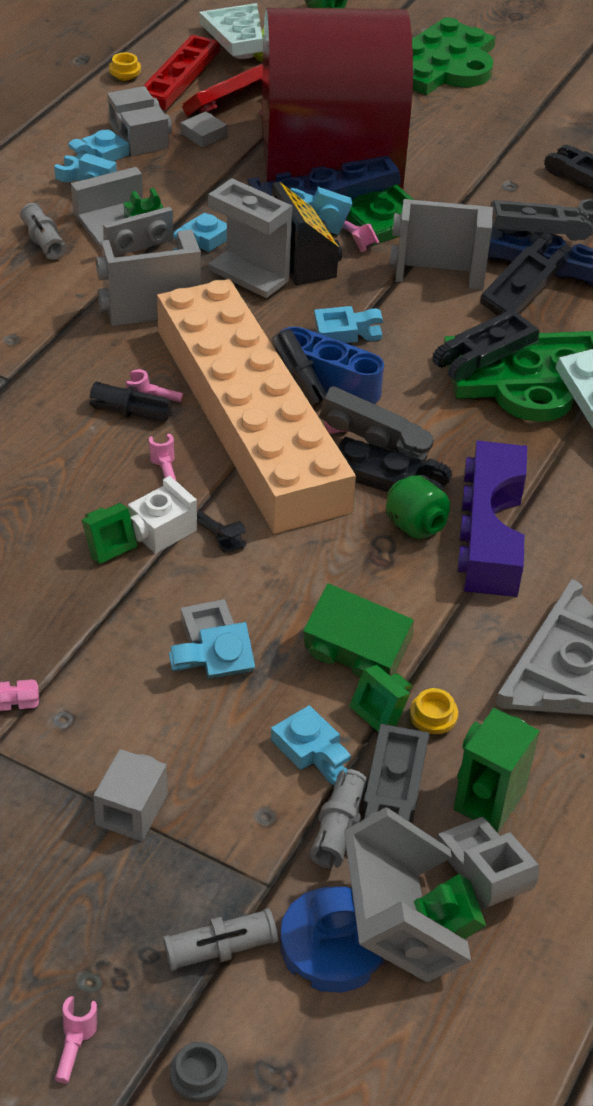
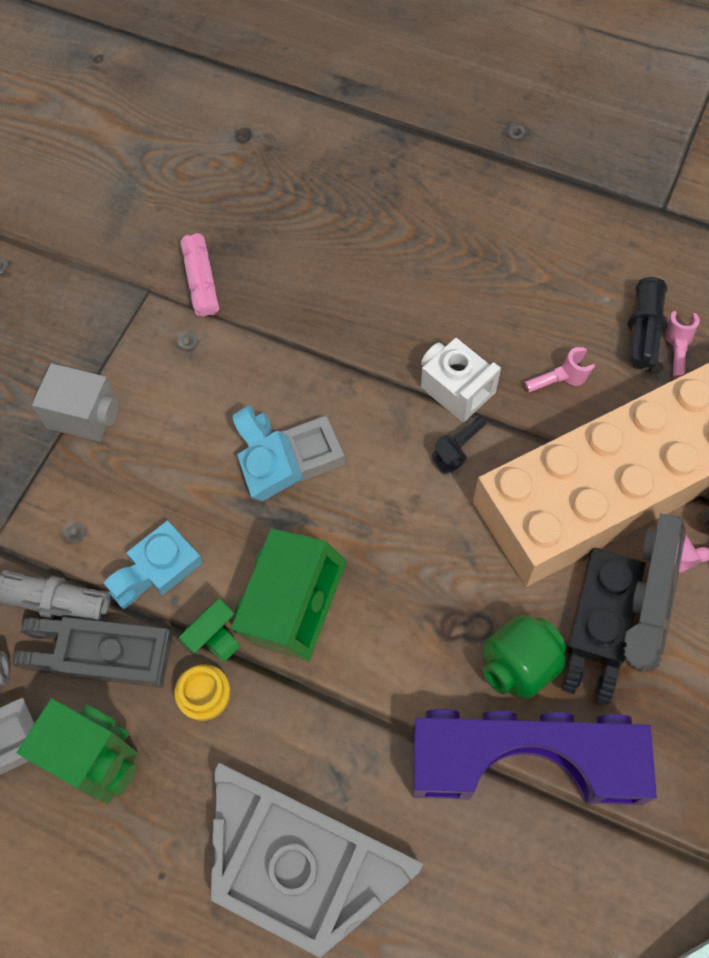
camera: 90 degrees right, 20 degrees up
(109, 532) = (421, 327): green tile -> none

